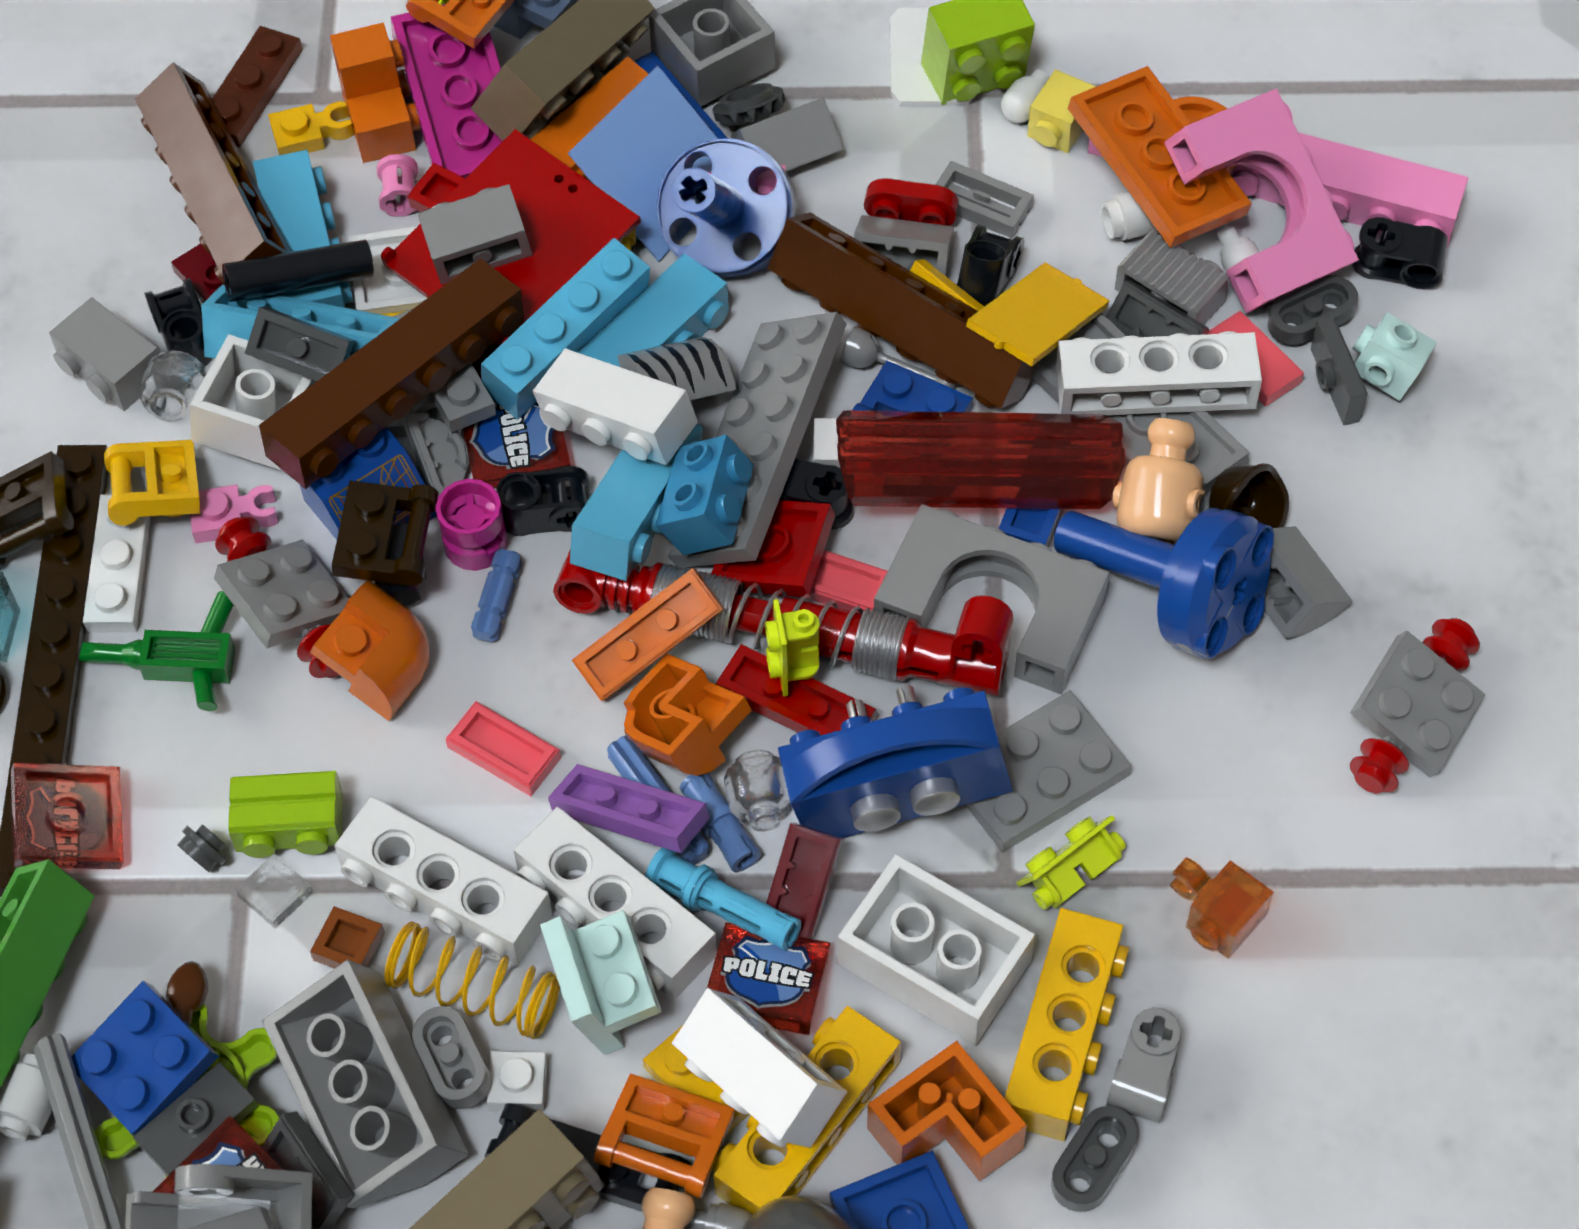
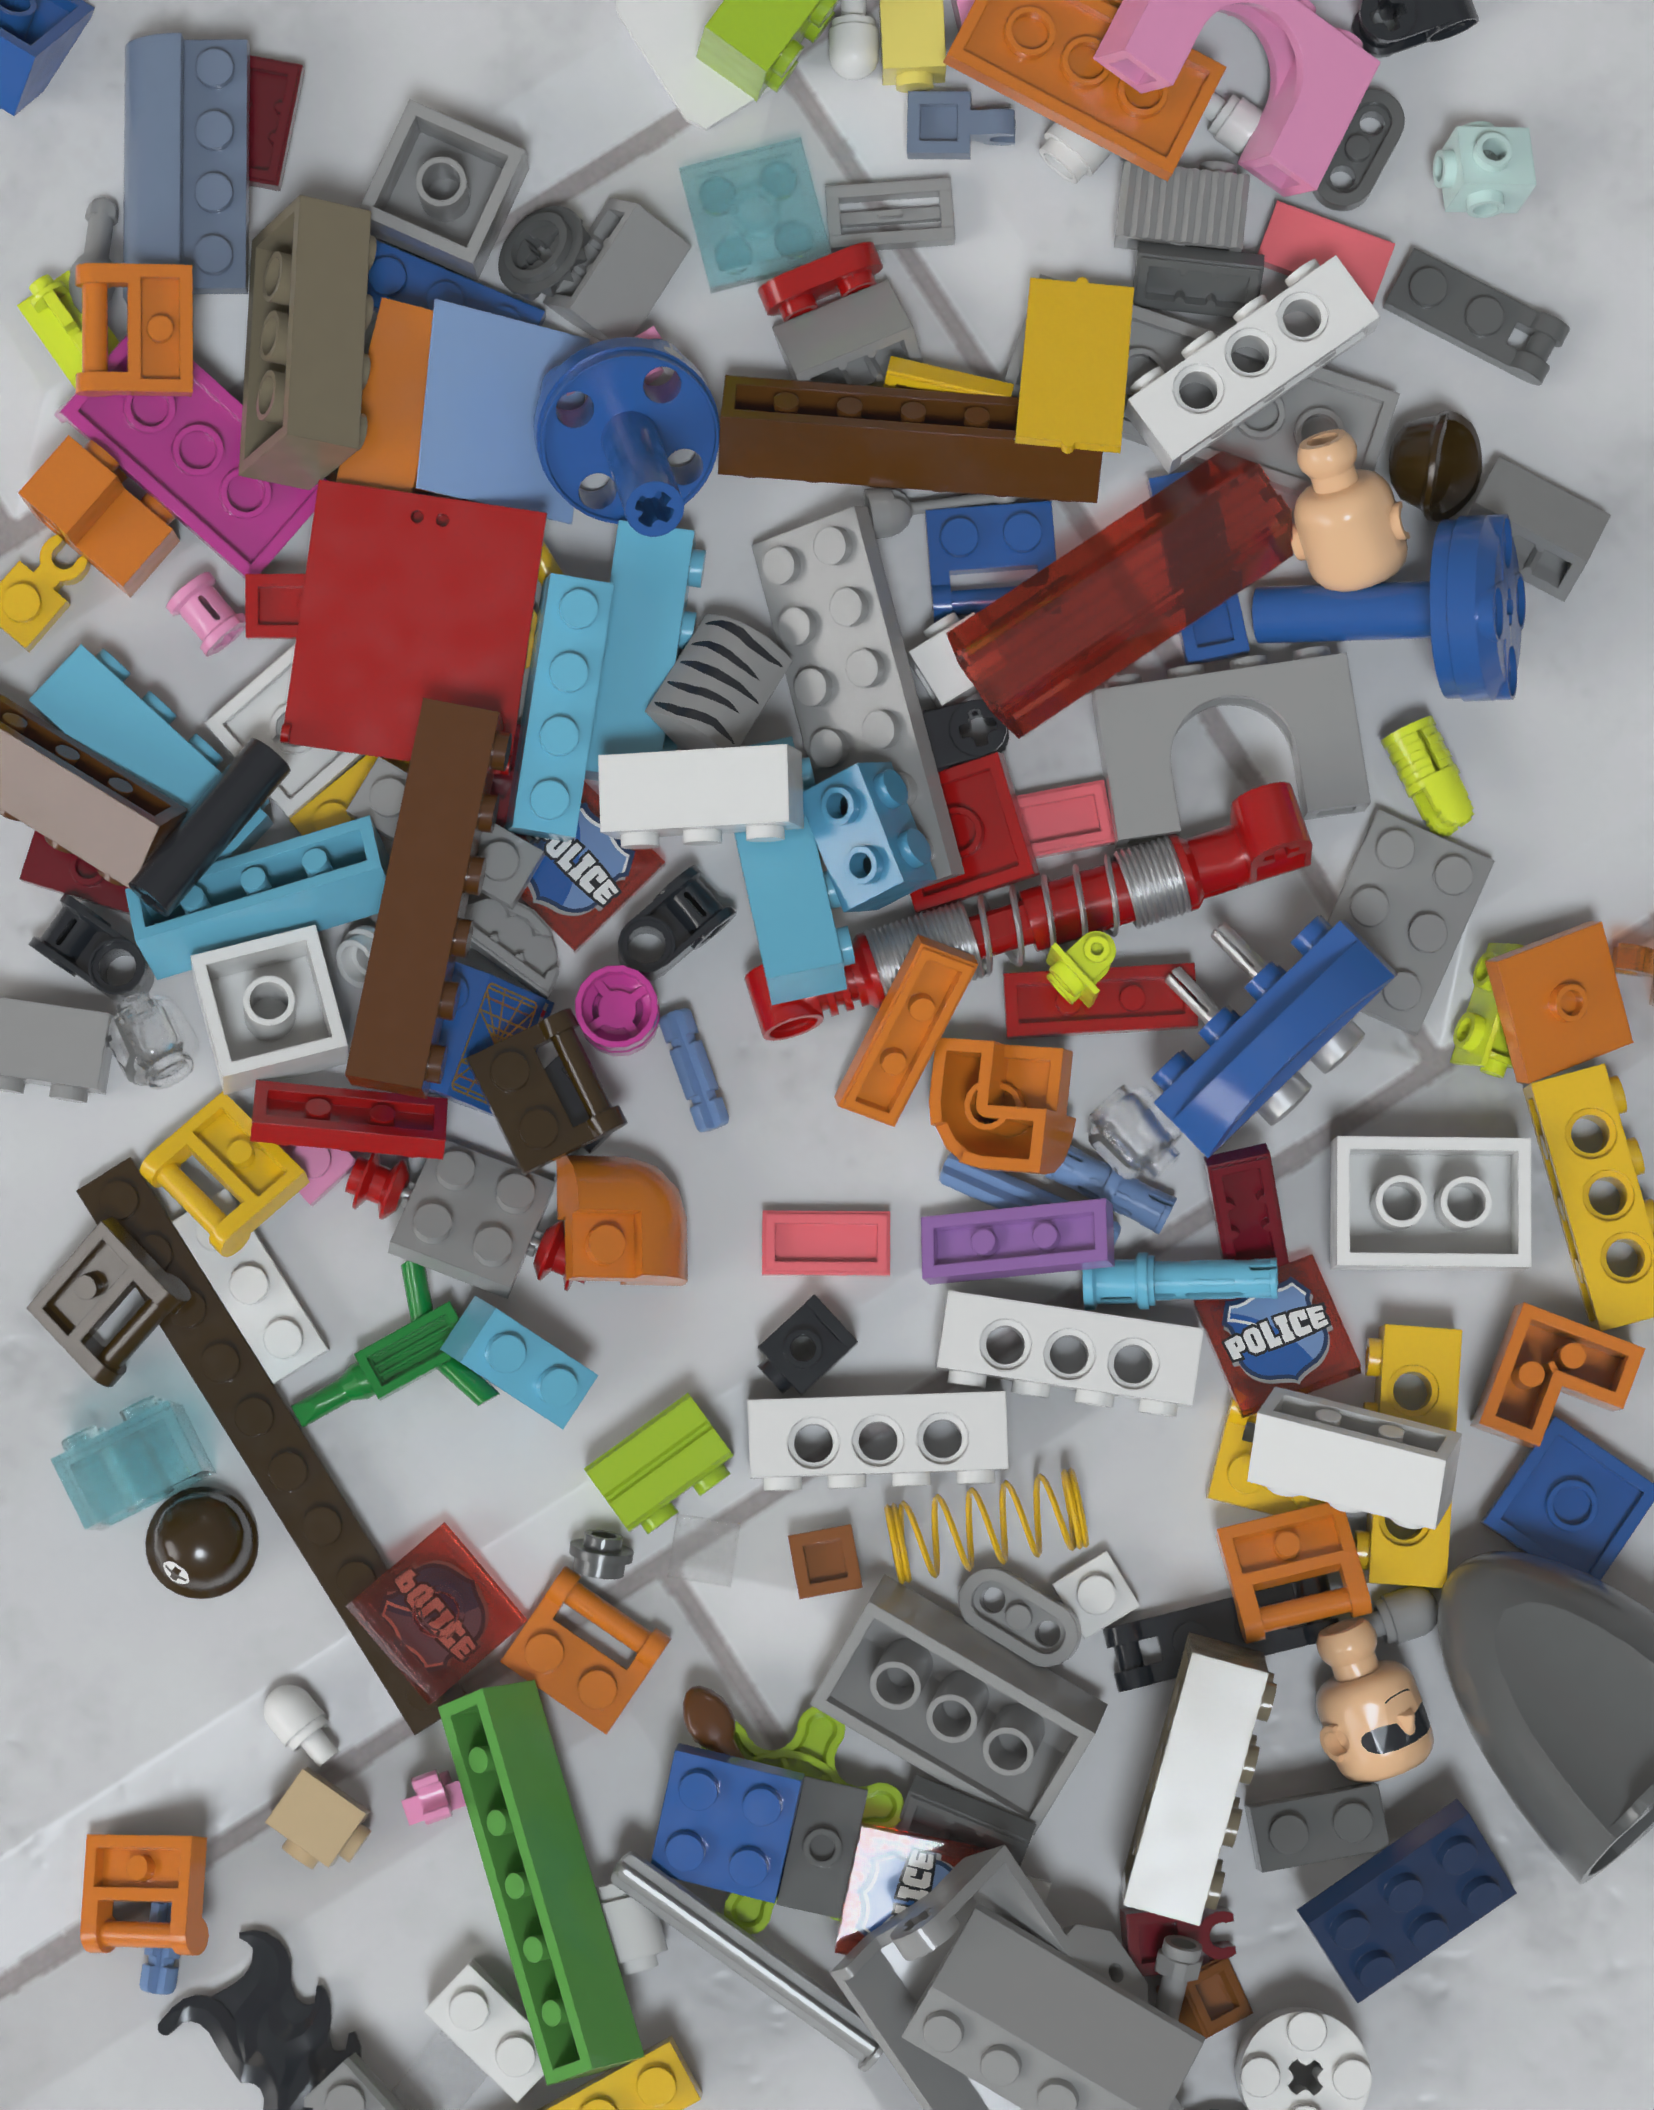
camera: 35 degrees left, 25 degrees up
(129, 914) = (573, 1668): none -> orange plate
(241, 687) = (519, 1362): none -> medium azure brick
(251, 488) = (349, 1119): none -> red plate
(296, 344) = (293, 930): dark grey plate -> none
(439, 797) = (831, 1344): none -> black brick
(473, 229) = (378, 655): light grey brick -> none
(601, 977) = (1126, 1449): light aqua bracket -> none
(894, 147) = (754, 214): none -> clear light blue plate
(988, 264) = (962, 315): black piece -> none
(1055, 165) = (944, 125): none -> sand blue plate
(1117, 870) = (1559, 1002): none -> orange plate
(1119, 685) = (1430, 776): none -> neon yellow hinge
(1332, 444) = (1475, 317): none -> dark grey plate
(1338, 371) = (1432, 222): dark grey plate -> none

